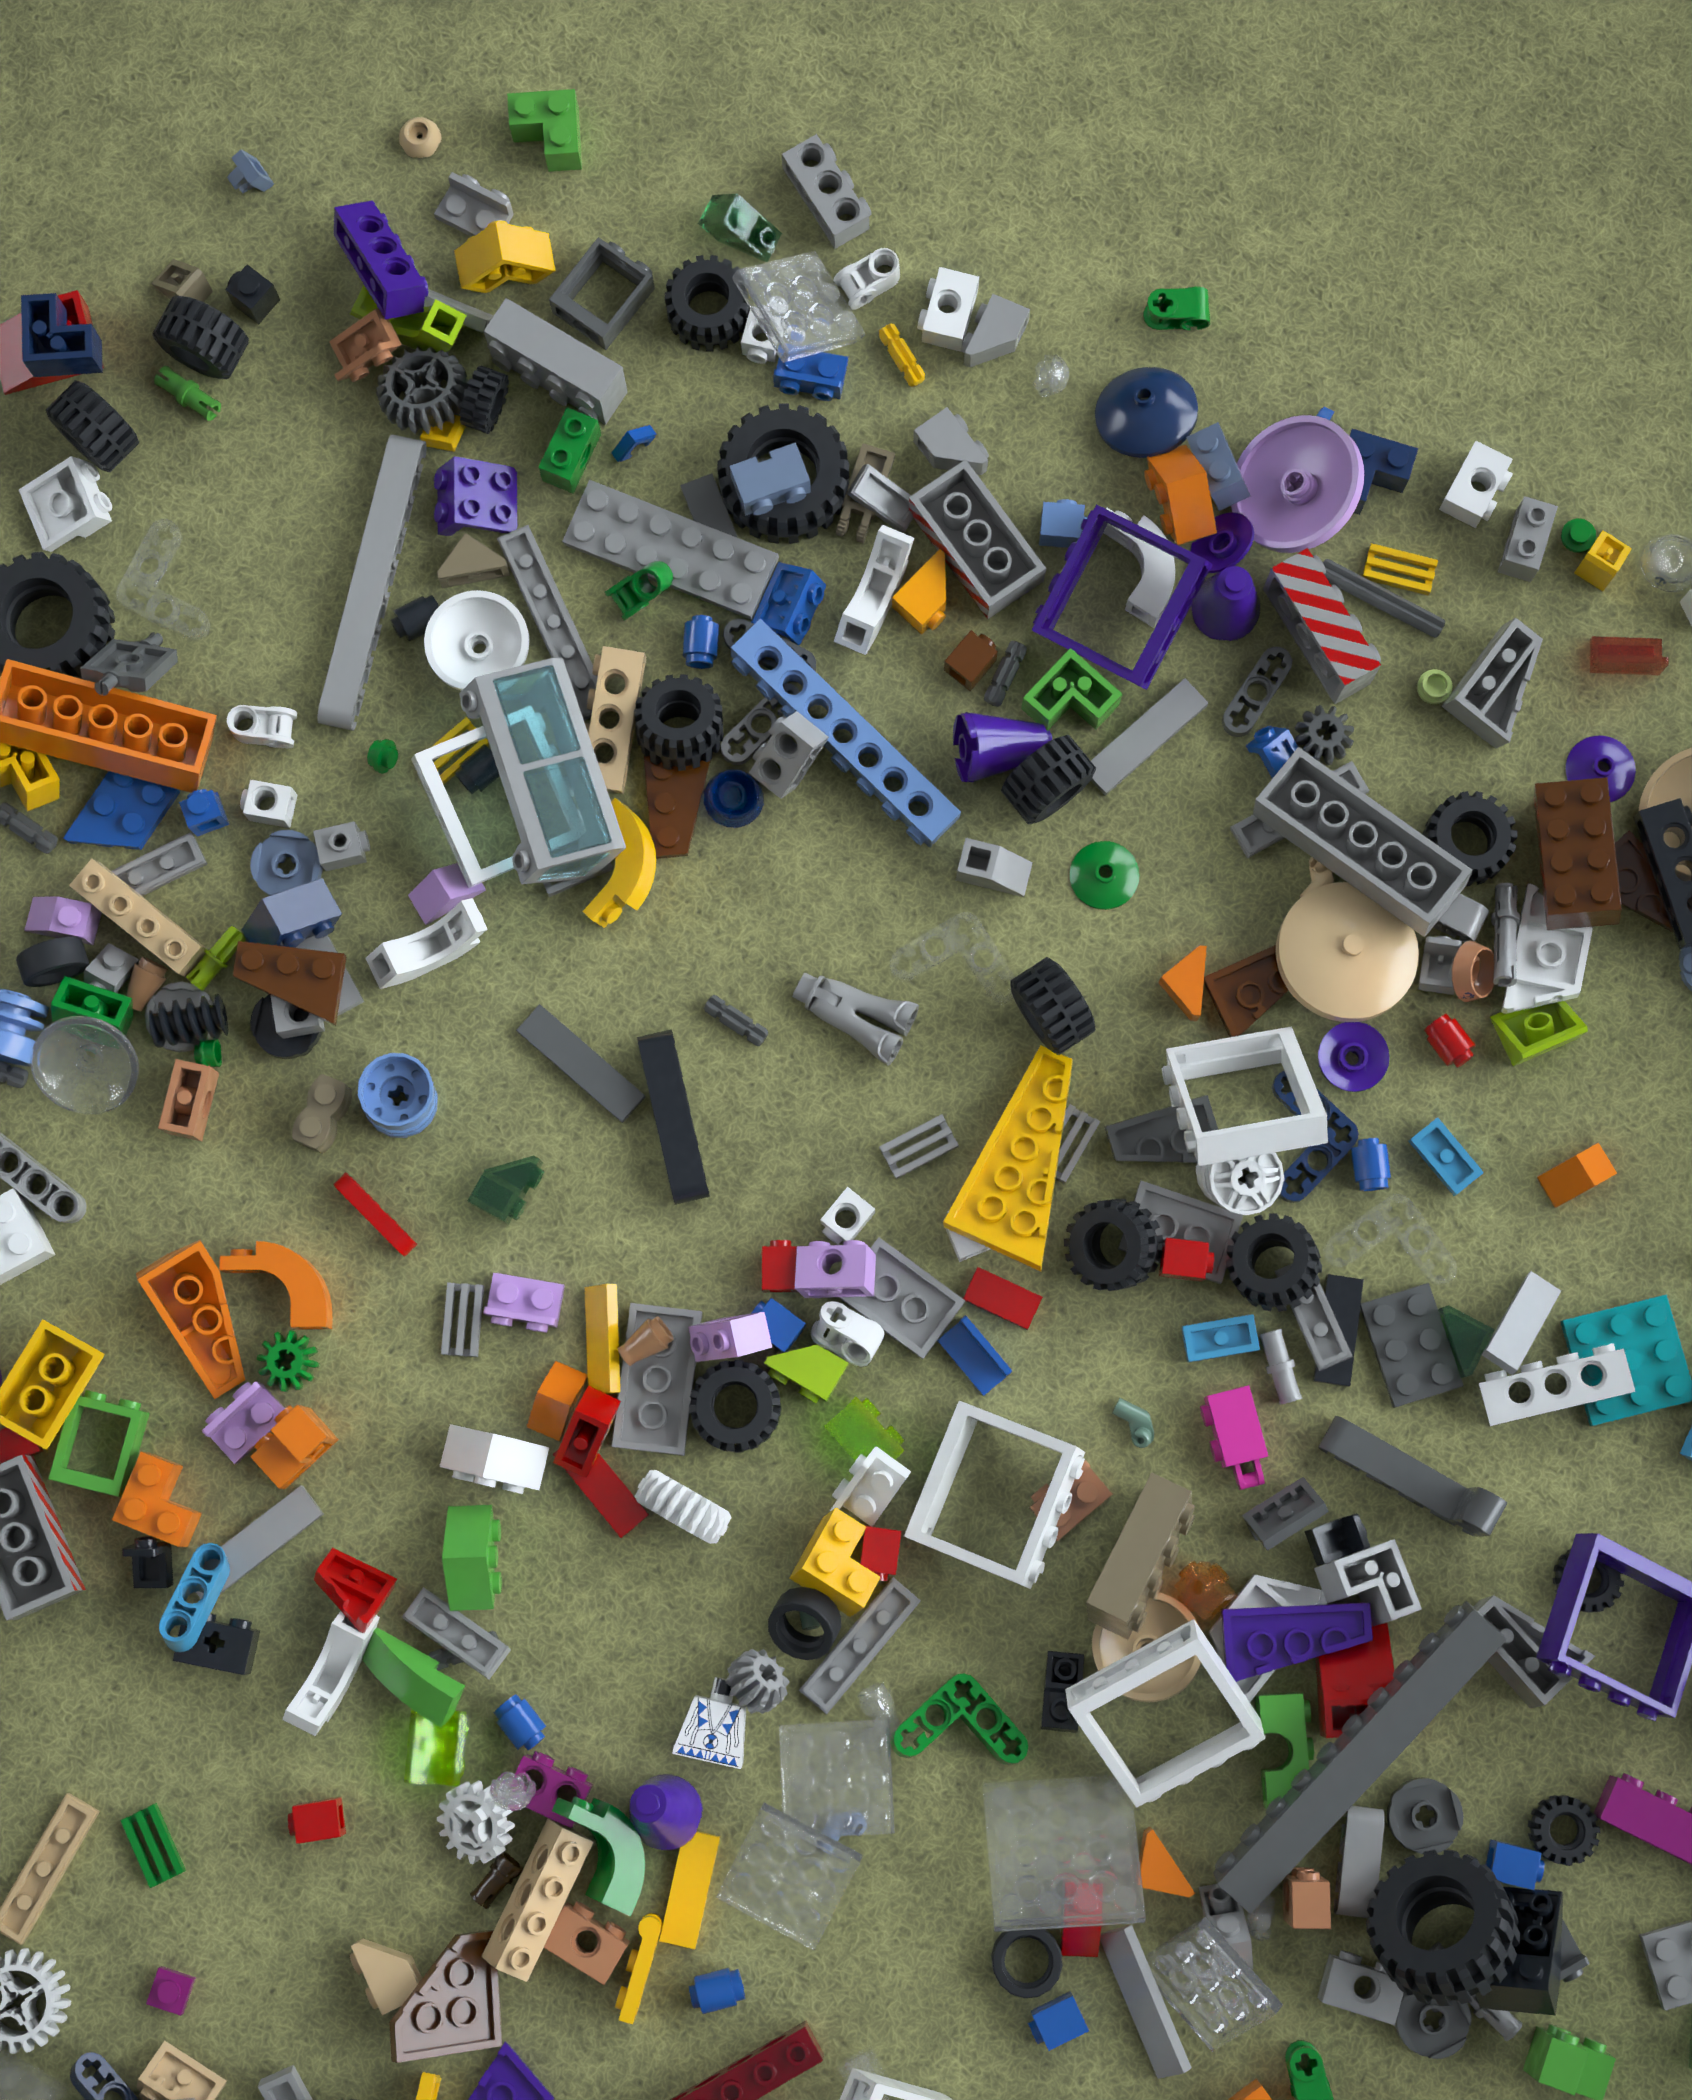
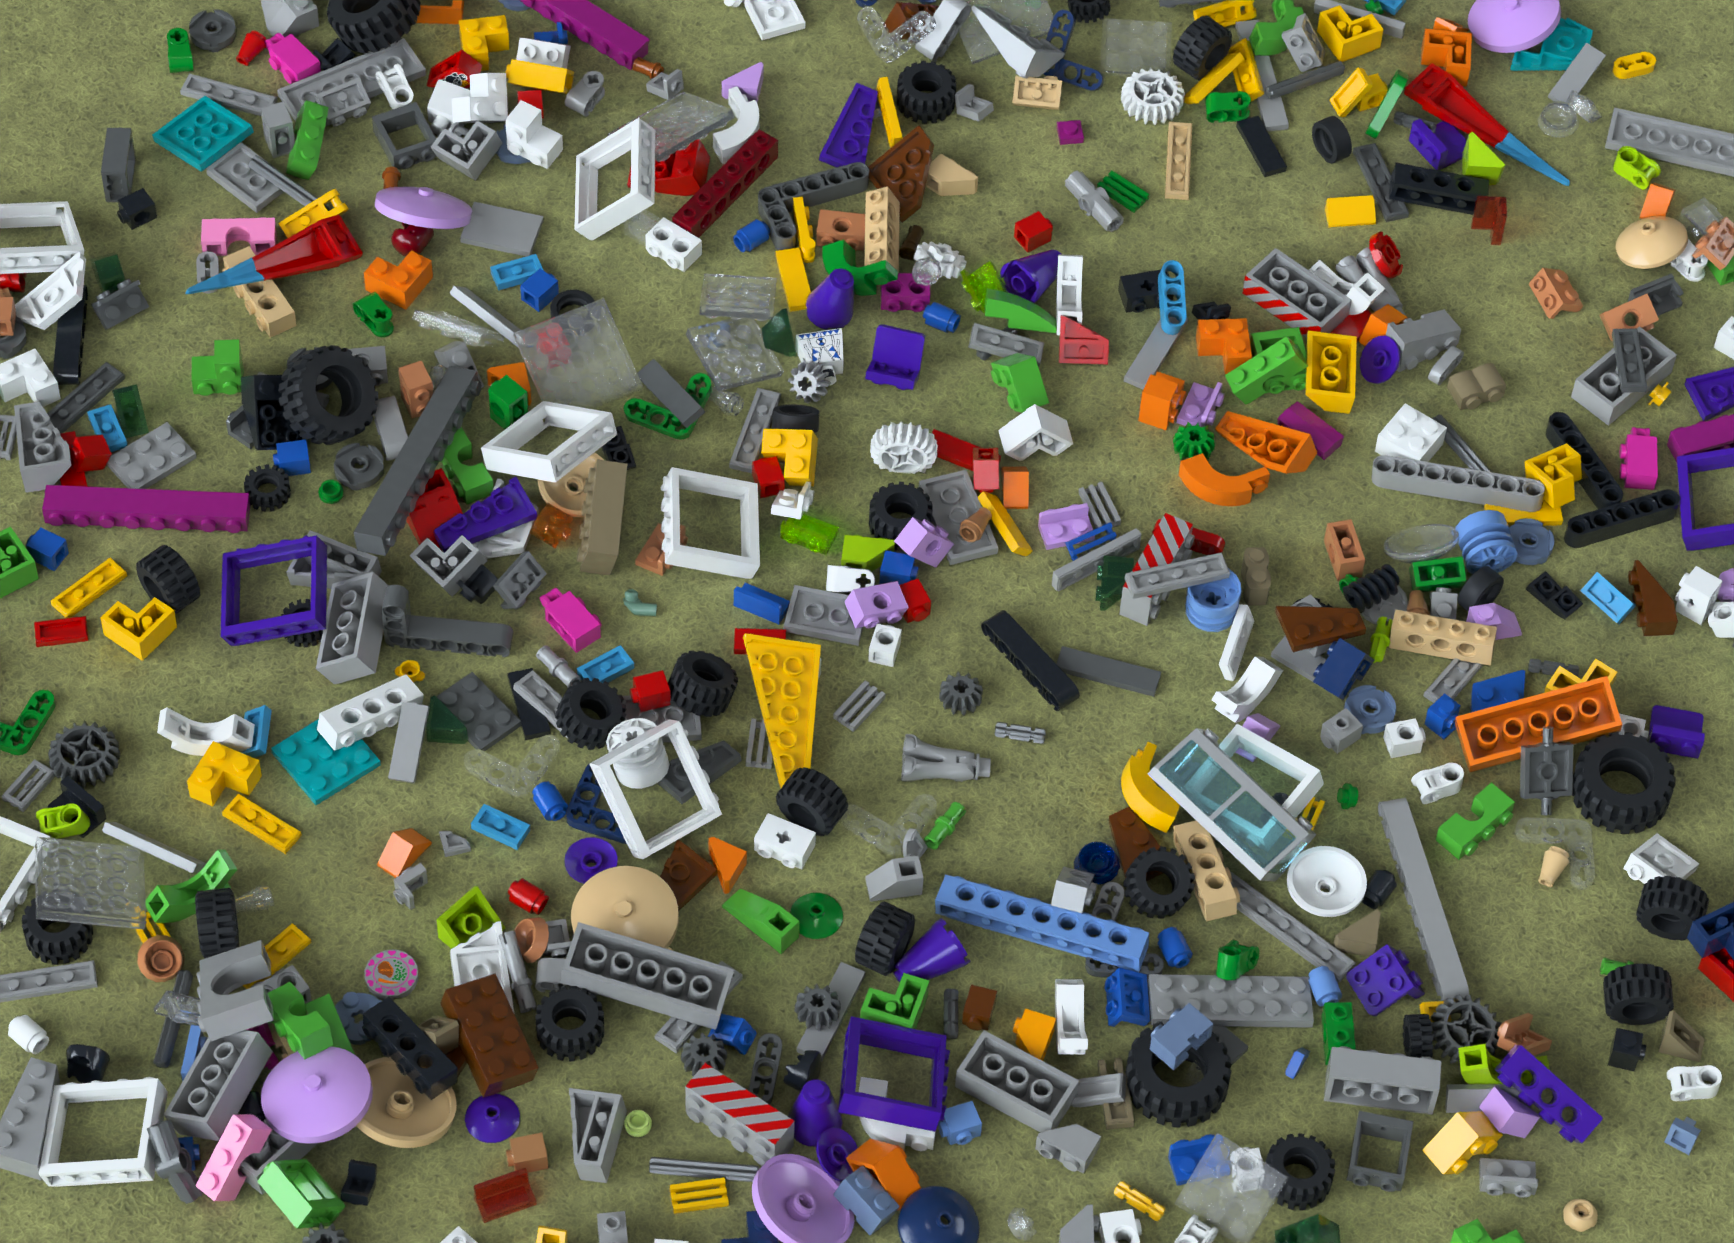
camera: 150 degrees right, 25 degrees down
(122, 1317) = (1323, 435): none -> magenta piece
(134, 1416) = (1279, 359): none -> bright green arch
(191, 561) = (1553, 864): none -> tan cone
(204, 1840) = (1094, 201): none -> light grey piece
(205, 229) = (1691, 1082): none -> white piece
(220, 658) = (1462, 836): none -> bright green arch
(358, 1736) = (1031, 275): none -> dark purple cone
(401, 1025) = (1236, 642): none -> white tile
(436, 1118) = (1177, 575): none -> light grey tile
(441, 270) = (1508, 1113): none -> lavender slope
(446, 1168) = (1167, 545): none -> light grey brick
(503, 1254) = (1110, 536): none -> blue tile
(511, 1229) = (1088, 563): none -> light grey tile
(551, 518) = (1324, 985): none -> medium blue brick
(610, 2029) = (777, 200): none -> dark grey beam
(622, 1666) = (896, 357): none -> dark purple bracket
(763, 1780) = (778, 334): none -> clear green slope
(778, 1093) = (961, 693): none -> dark grey gear
(828, 2025) = (673, 244): none -> white brick
(894, 925) = (944, 825): none -> bright green pin
(947, 909) = (913, 844): none -> light grey tile
(956, 1743) = (670, 393): none -> dark grey tile
(1076, 2072) = (515, 271): none -> dark azure plate
(1106, 1000) = (784, 841): none -> white brick
(1152, 726) = (817, 1007): none -> dark grey gear
(1177, 886) = (764, 918): none -> bright green slope
(1189, 1820) = (507, 401): none -> green brick
(1217, 662) = (803, 1071): none -> black hair
(1477, 1788) = (330, 492): none -> green plate
(1484, 1448) = (410, 666): none -> yellow plate
(1511, 1162) = (453, 844): none -> light grey tile
(1535, 1533) = (352, 629): none -> light grey brick
(1582, 694) = (527, 1153): none -> medium nougat brick
(1588, 1124) = (408, 882): none -> light grey bracket
(1640, 885) = (442, 1032): none -> dark tan slope
(1654, 1007) = (391, 974): none -> light grey tile

